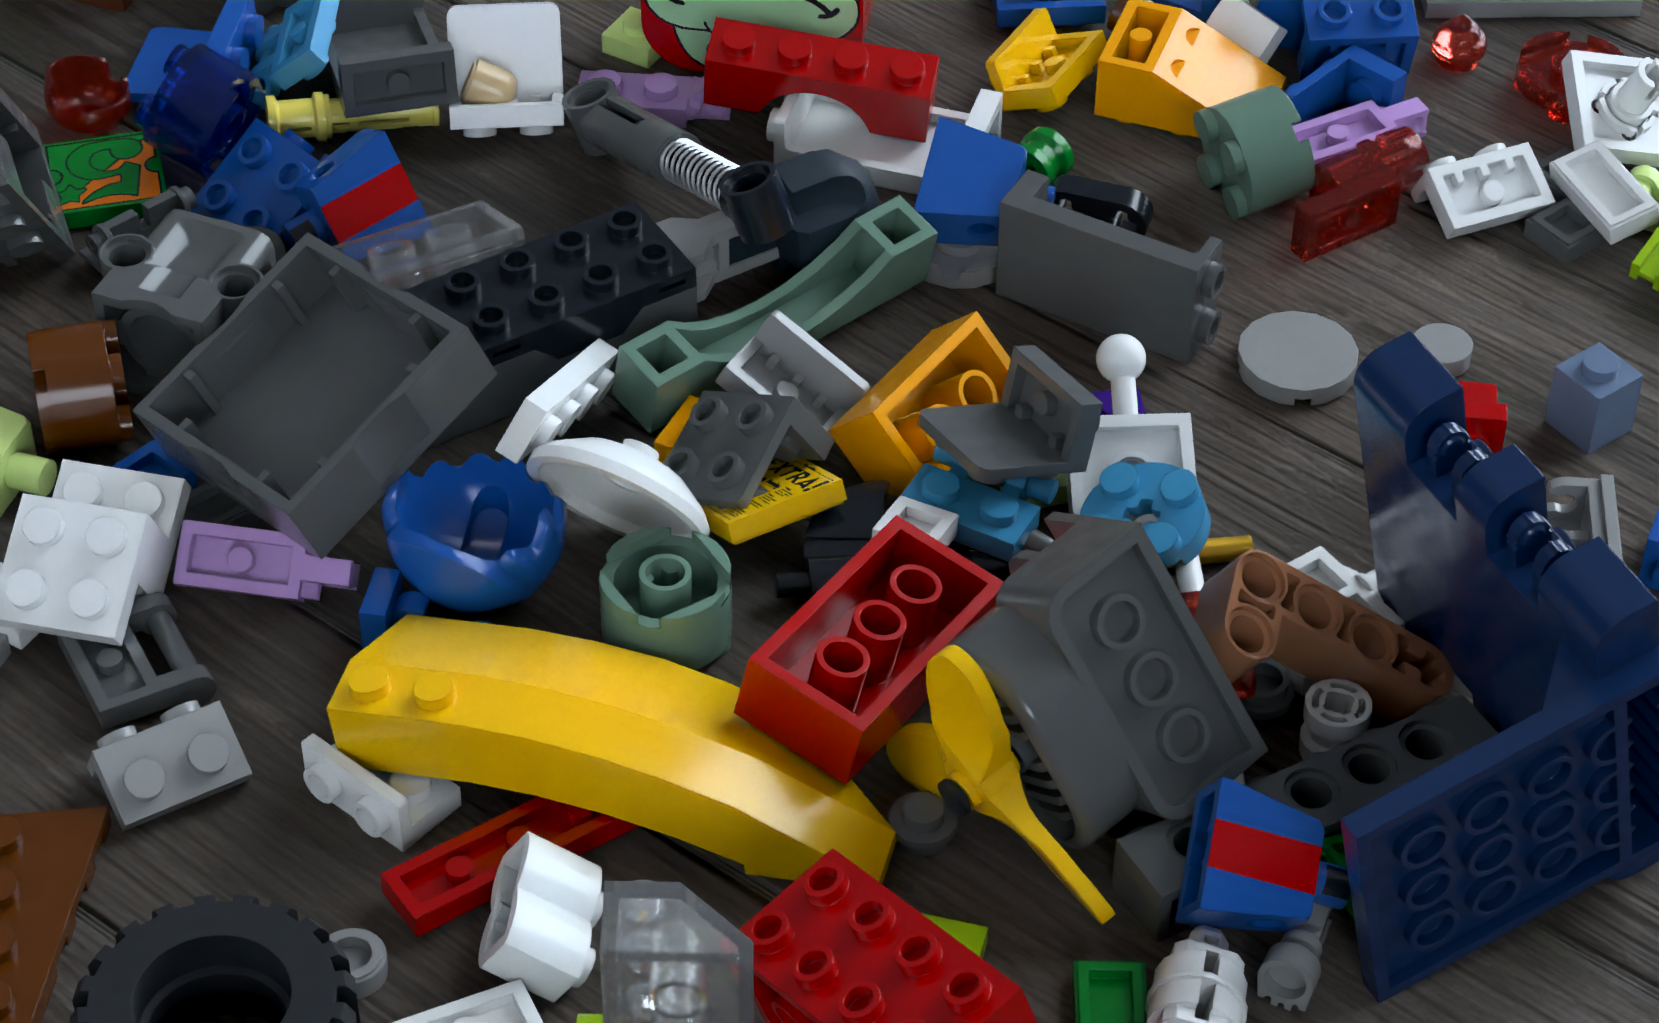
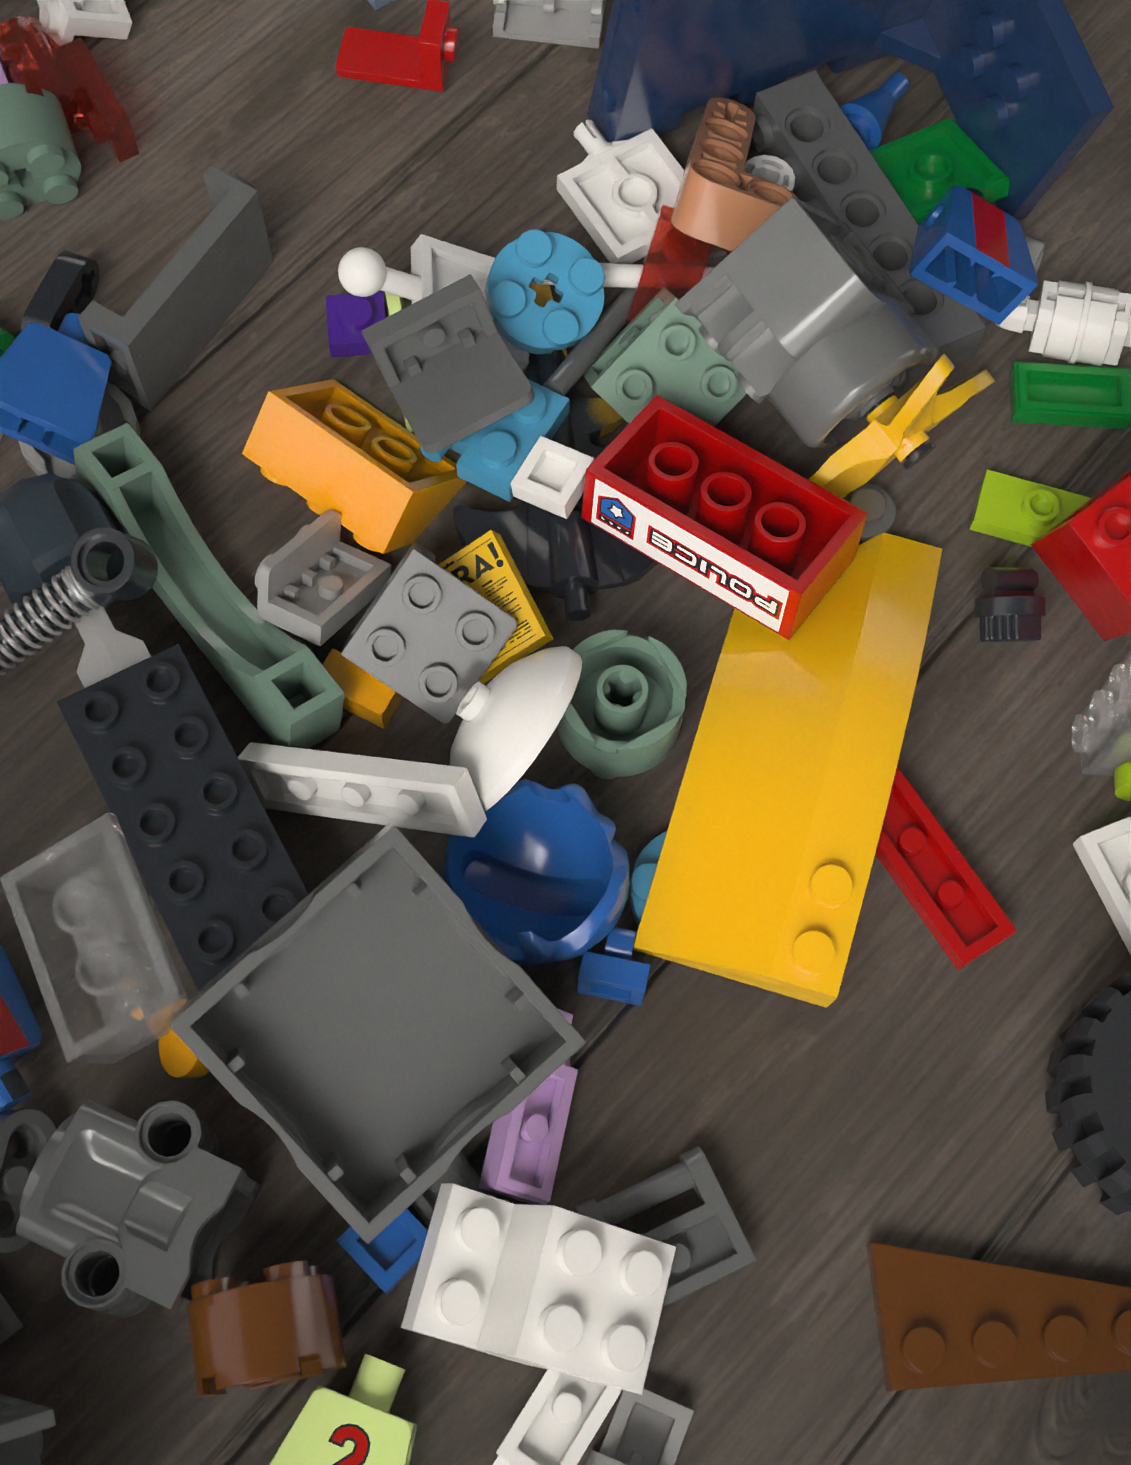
camera: 90 degrees left, 25 degrees up
(169, 763) = (809, 1187): light grey bracket -> none
(366, 958) = (1043, 995): light grey tile -> none
(381, 802) = (867, 967): white bracket -> none
(542, 918) = (1023, 817): white brick -> none
(1297, 358) = (291, 167): light grey tile -> none
(1449, 345) = (288, 63): light grey tile -> none

